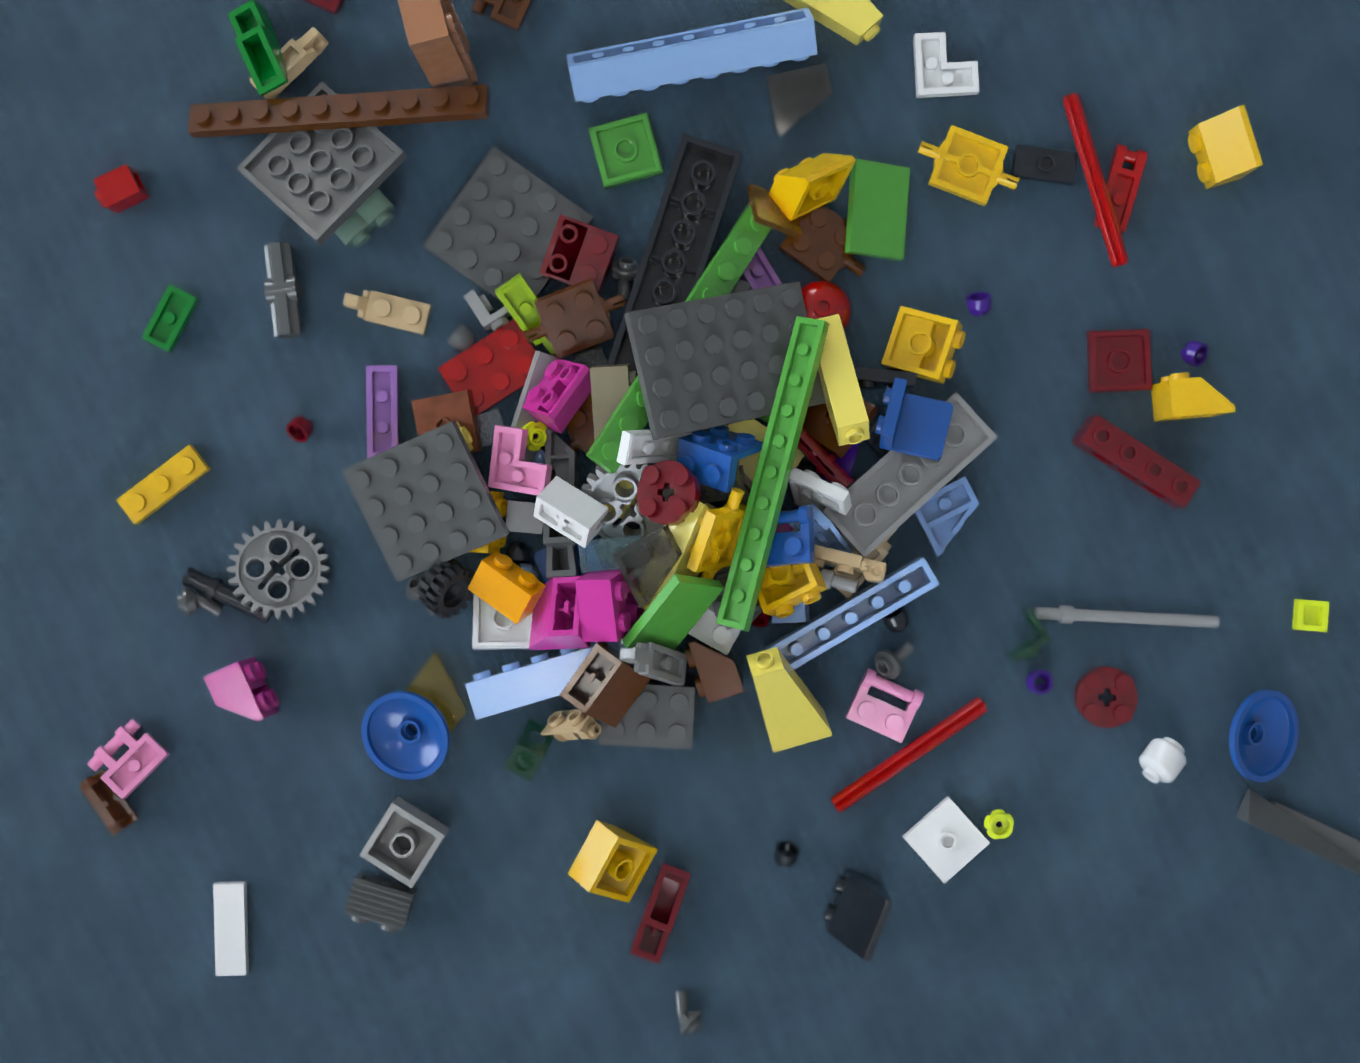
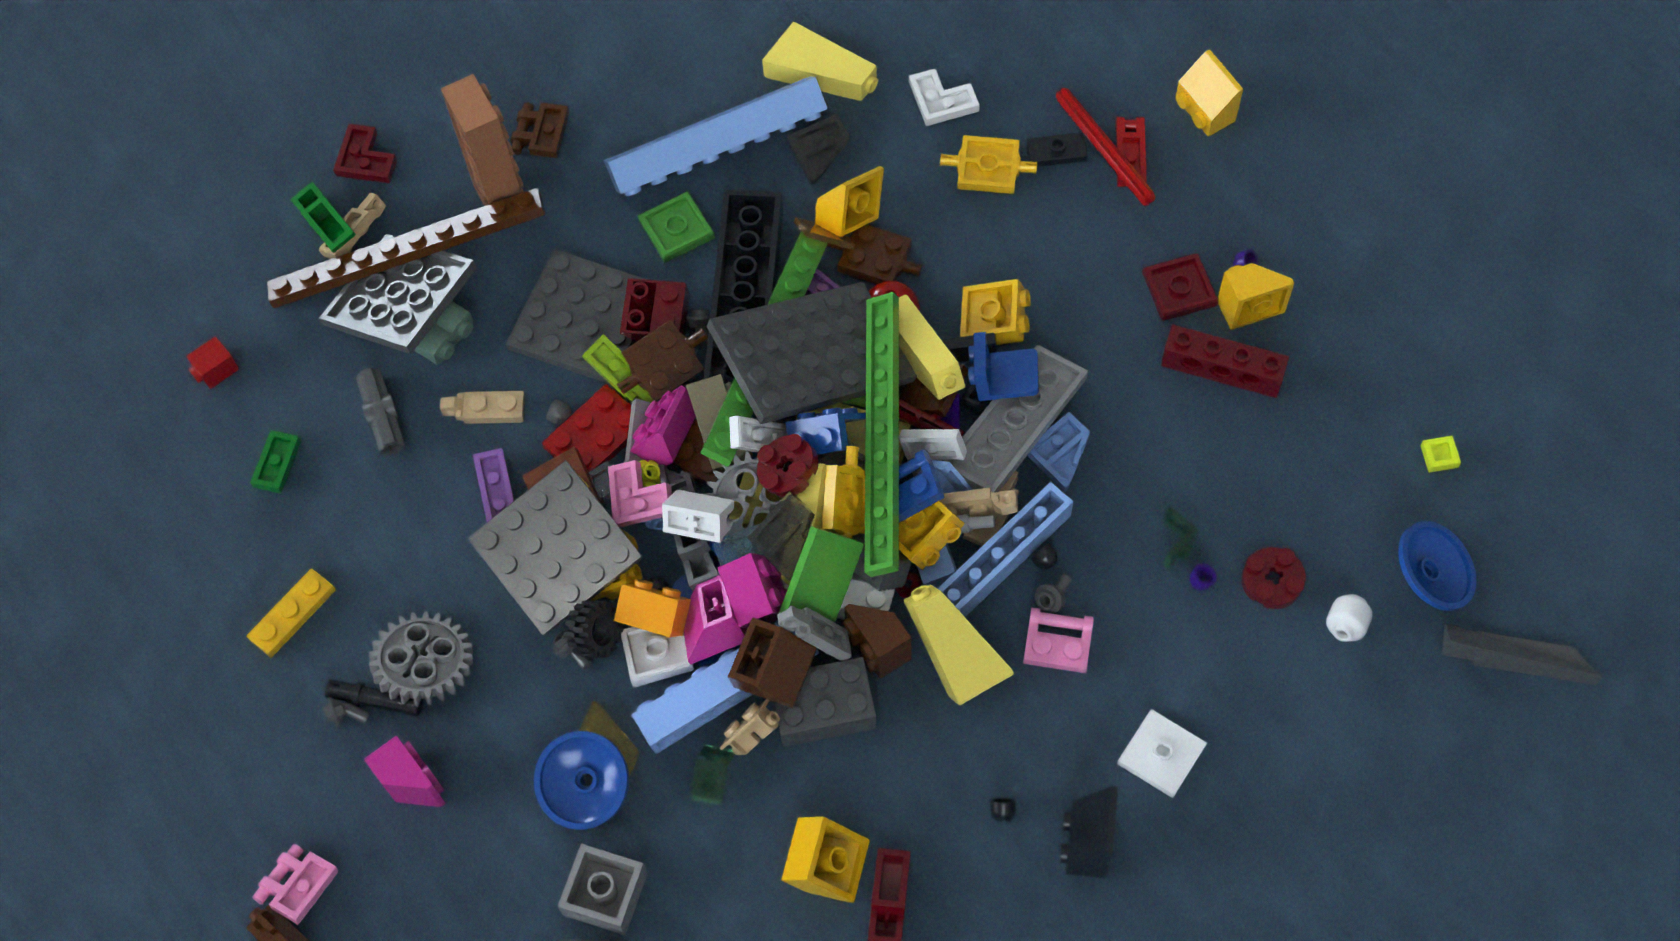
camera: 10 degrees left, 25 degrees down
(297, 423) = (413, 525): dark red hinge -> none
(482, 307) = (575, 384): light grey bracket -> none
(521, 518) = (658, 551): light grey brick -> none
(877, 210) = (917, 216): bright green tile -> none
(909, 754) = (1097, 680): red axle -> none
(979, 303) = (1035, 270): dark purple hinge -> none
(999, 832) = (1213, 716): neon yellow plate -> none
(1067, 614) = (1210, 511): light grey bar -> none

